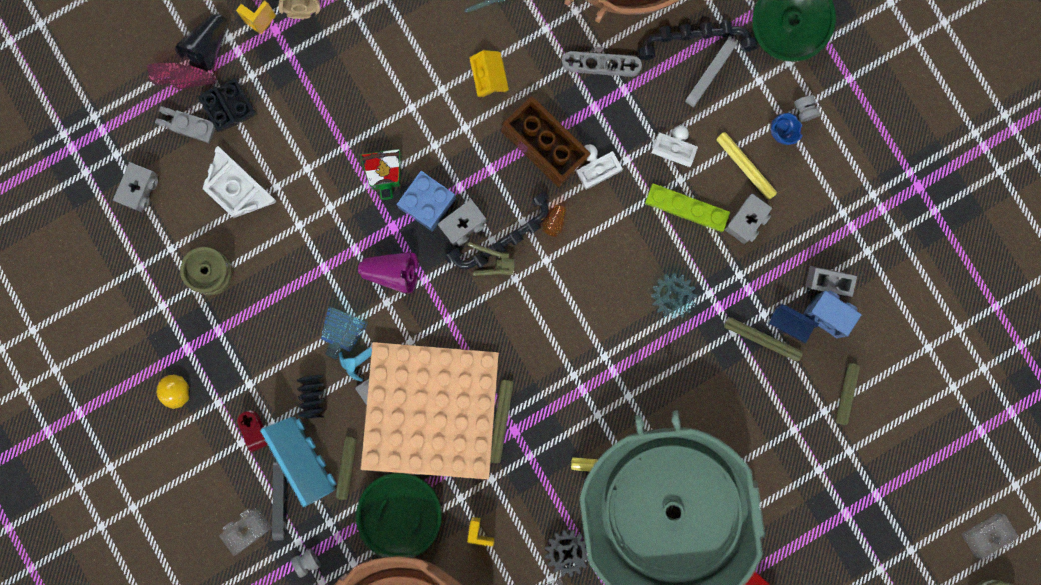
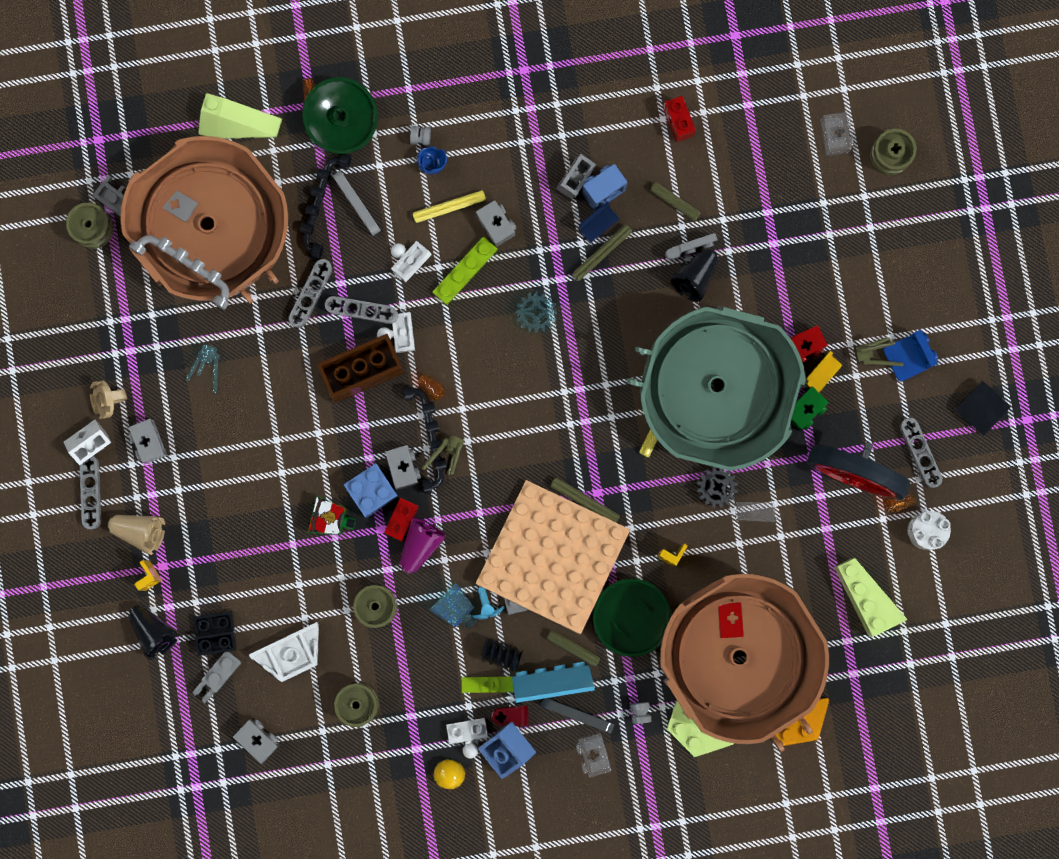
camera: 75 degrees left, 0 degrees up
(179, 75) = (171, 665): clear pink slope -> none
(215, 440) = (507, 750): none -> medium blue brick
(221, 393) = (467, 732): none -> white plate
(277, 393) = (487, 684): none -> lime piece
(311, 239) = (387, 606): none -> olive wheel
(409, 242) = (401, 519): none -> red brick
(488, 73) = (279, 394): yellow panel -> none
(607, 119) = (361, 310): none -> light grey beam
(779, 445) = (695, 275): none -> black cone
(806, 427) = (689, 247): none -> light grey hinge
(936, 364) = (679, 118): none -> red brick

